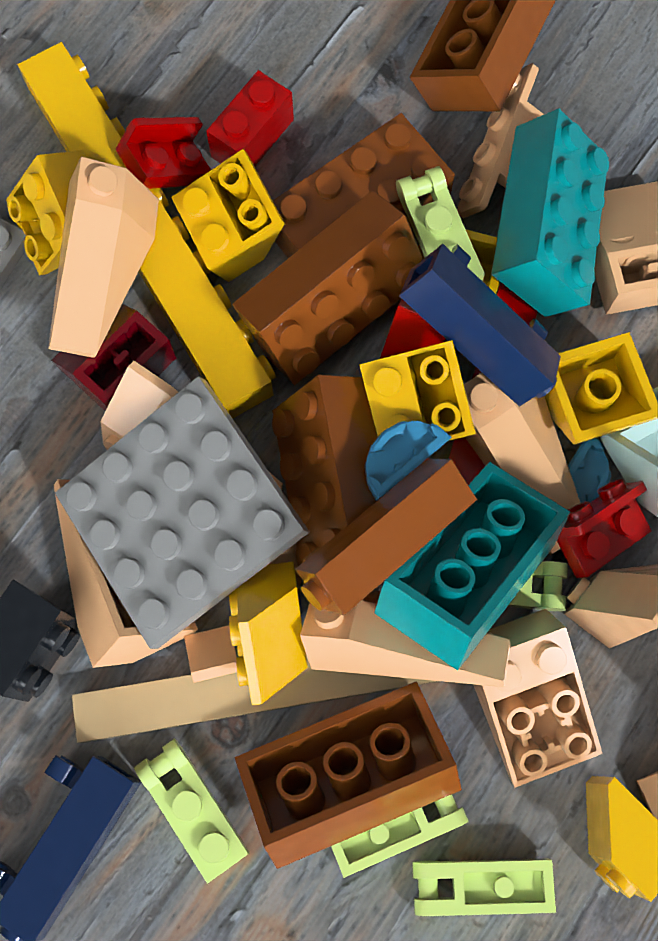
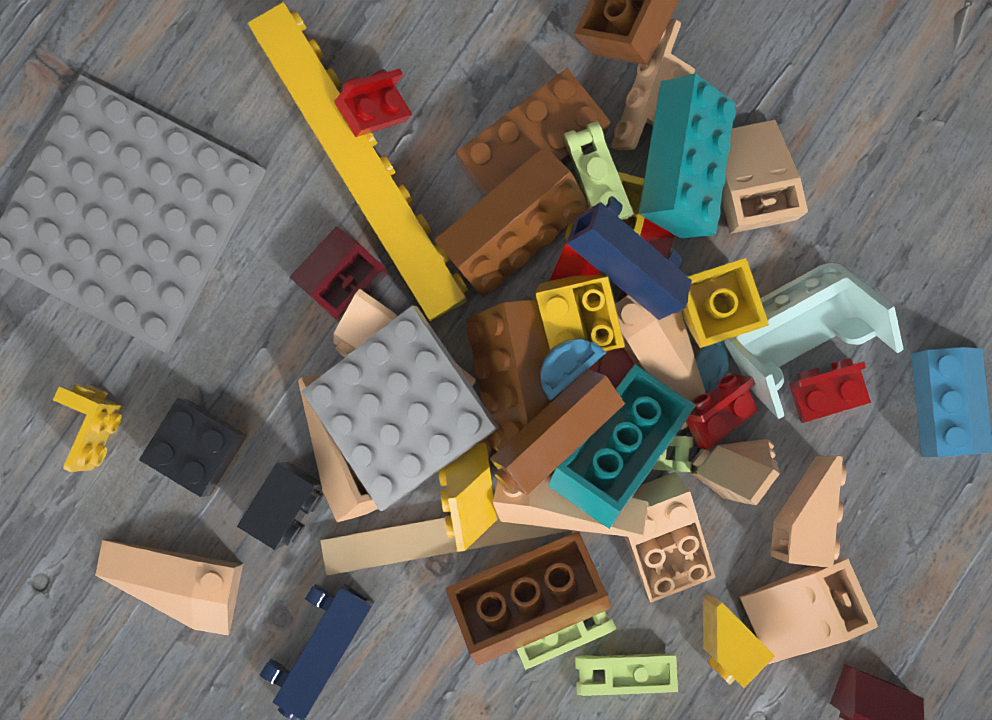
camera: 10 degrees left, 10 degrees up
(40, 206) = (290, 153): yellow slope -> none
(102, 249) = (329, 191): light nougat wedge -> none
(192, 812) = (413, 623): yellowish green plate -> none
(211, 653) = (424, 508): light nougat tile -> none
(230, 216) = (428, 158): yellow slope -> none
(252, 120) = (443, 73): red brick -> none

